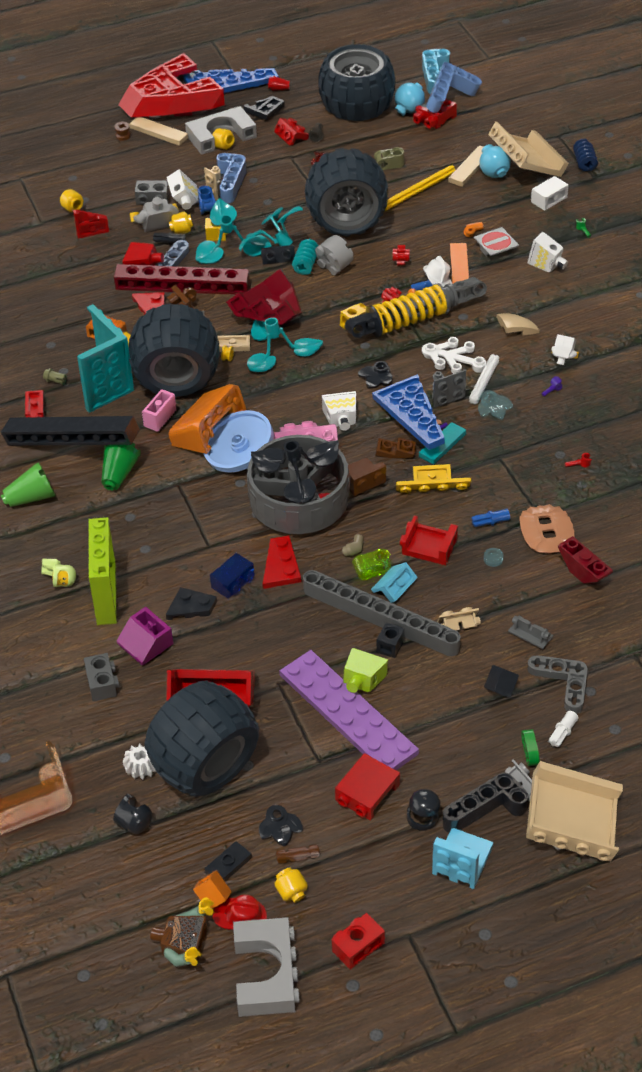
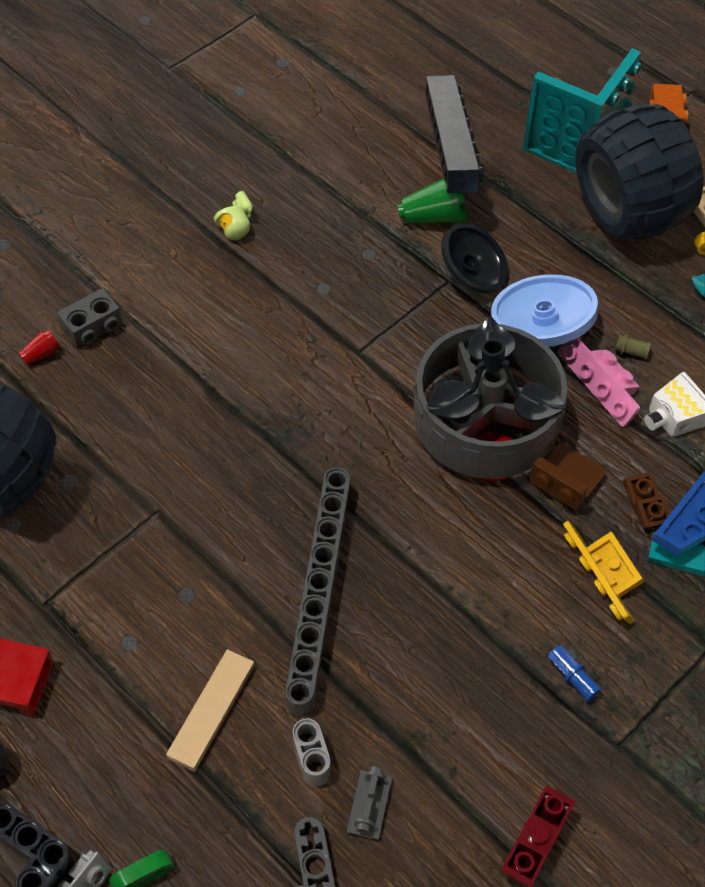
camera: 65 degrees right, 10 degrees up
(28, 488) = (357, 138): bright green cone -> none
(34, 403) = (493, 94): red hinge -> none
(102, 571) = (241, 271): lime window -> none
(108, 711) = (39, 347): none -> red cone
(145, 636) = (168, 338): magenta slope -> none
(159, 410) = (553, 209): bright pink brick -> none
(176, 461) = (474, 258): none -> black dish
(191, 604) = (249, 367): black wing -> none
(196, 425) = (565, 255): orange windscreen -> none
(232, 575) = (310, 391): clear blue brick -> none
(238, 681) = (117, 427): red windscreen -> none
(281, 417) = (632, 346): none -> olive pin
(281, 564) = (362, 440): red wing -> none
(348, 711) = (131, 613): medium lavender plate -> none
(354, 547) = (430, 515): dark tan arm -> none
(364, 671) = (199, 600): lime torso -> none
(370, 564) = (404, 546): clear neon green piece -> none
(390, 640) = (267, 606): black brick -> none
(395, 581) = (386, 587): medium azure panel -> none
(428, 542) = (485, 604): red panel -> none
(437, 690) = (210, 710): none -> tan tile
(466, 617) = (344, 684): tan hinge -> none
(489, 647) = (311, 752): none -> light grey beam
(493, 557) = (500, 703): clear light blue tile -> none
(501, 681) = (255, 791): black panel -> none
(533, 530) = (609, 780): nougat piece -> none

